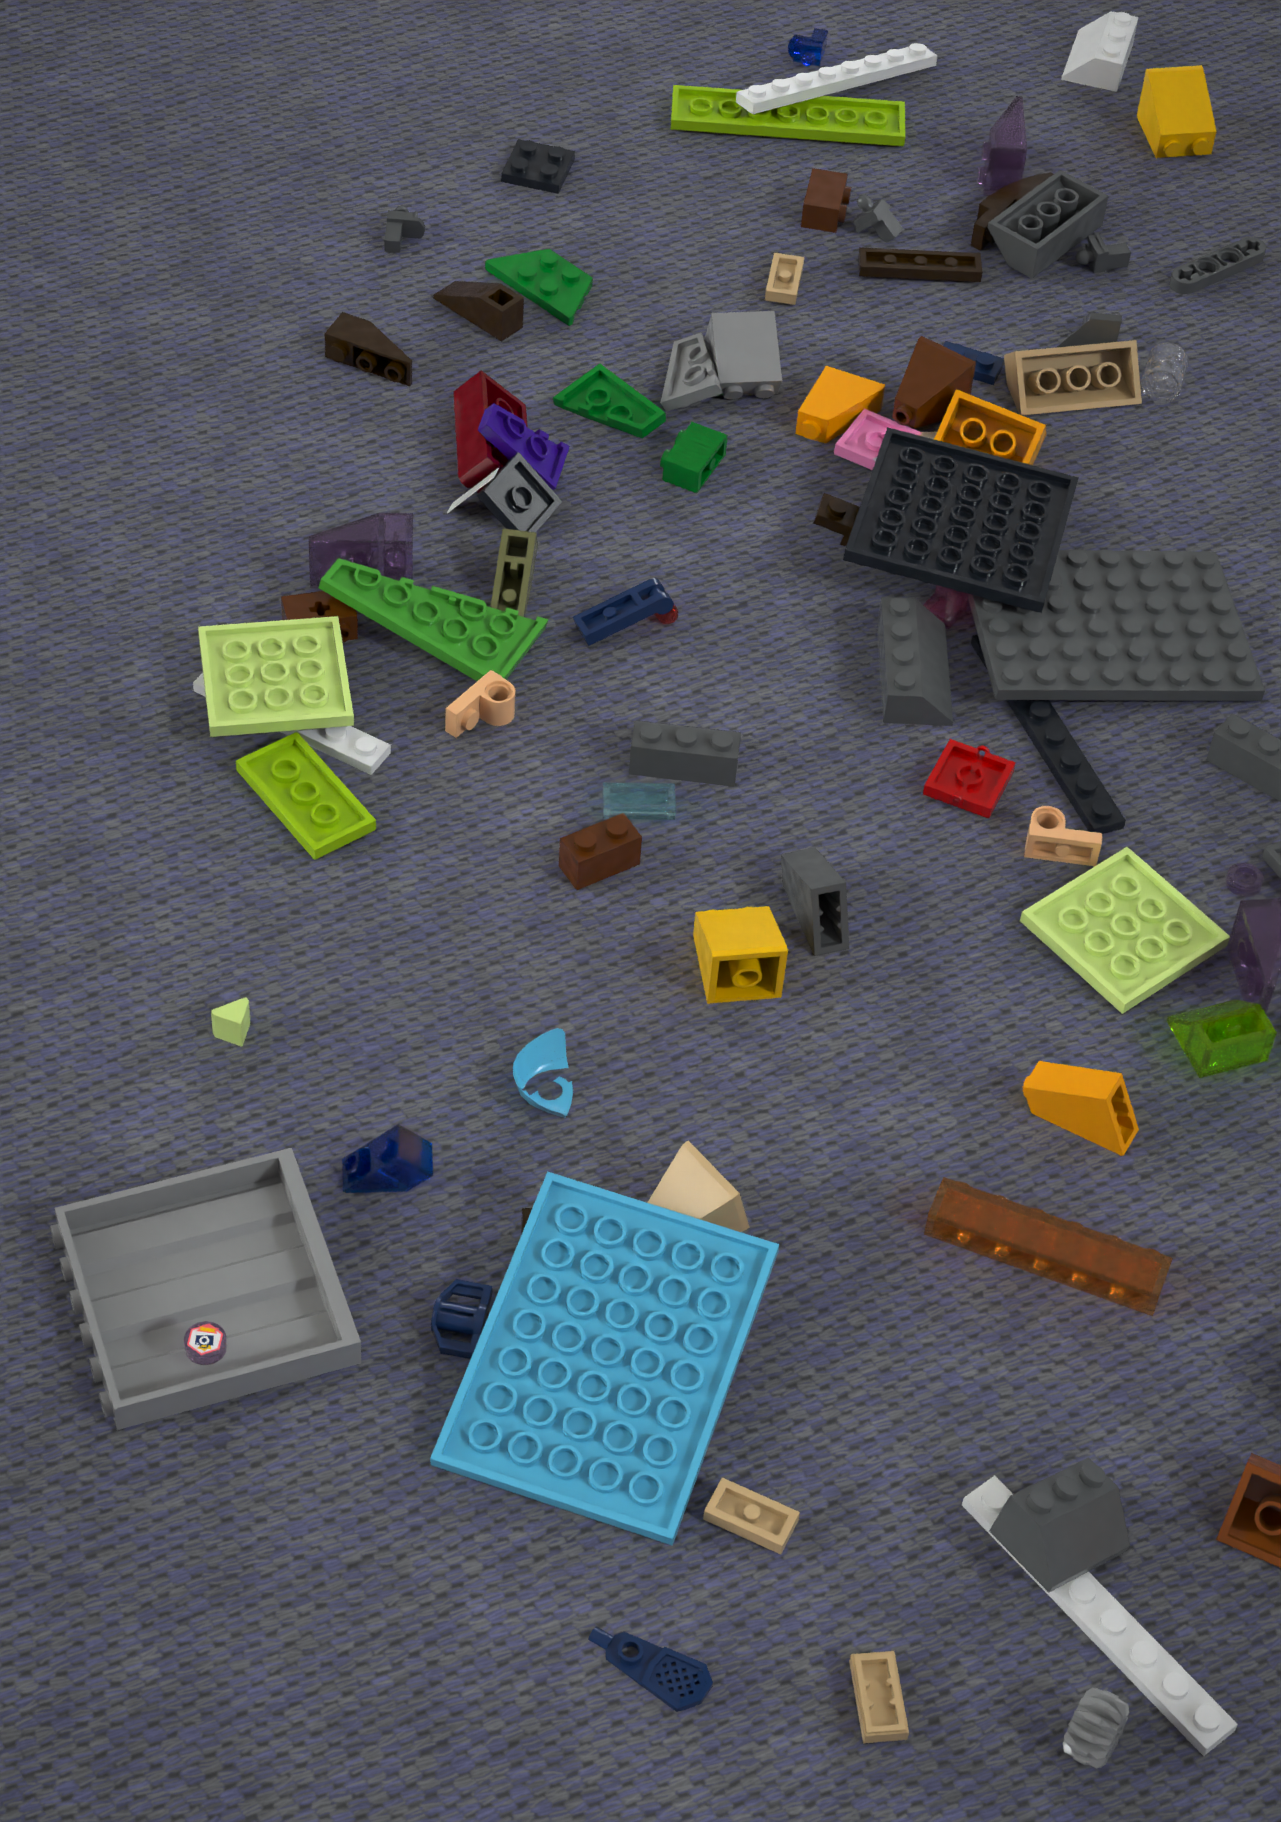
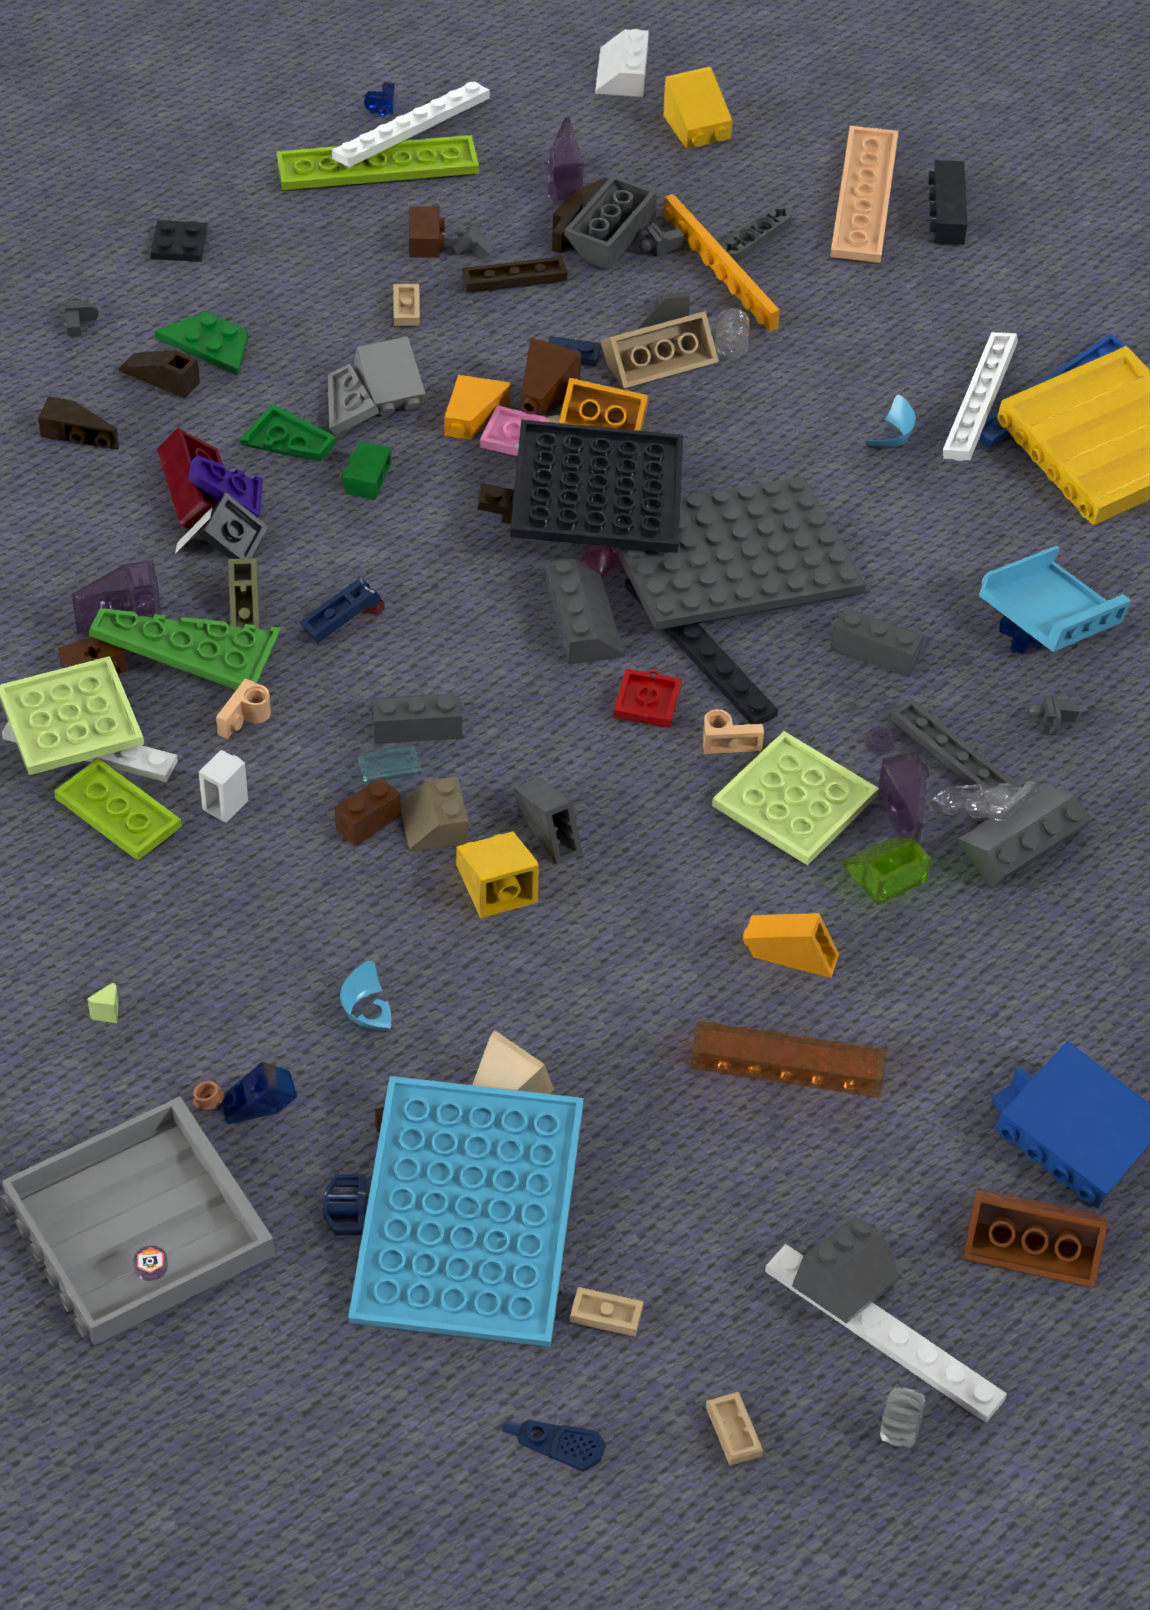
camera: 10 degrees left, 0 degrees up
(327, 1154) = (207, 1095): none -> nougat plate
(434, 790) = (223, 786): none -> white brick
(680, 871) = (435, 815): none -> dark tan slope
(1169, 292) = (722, 263): none -> light orange plate

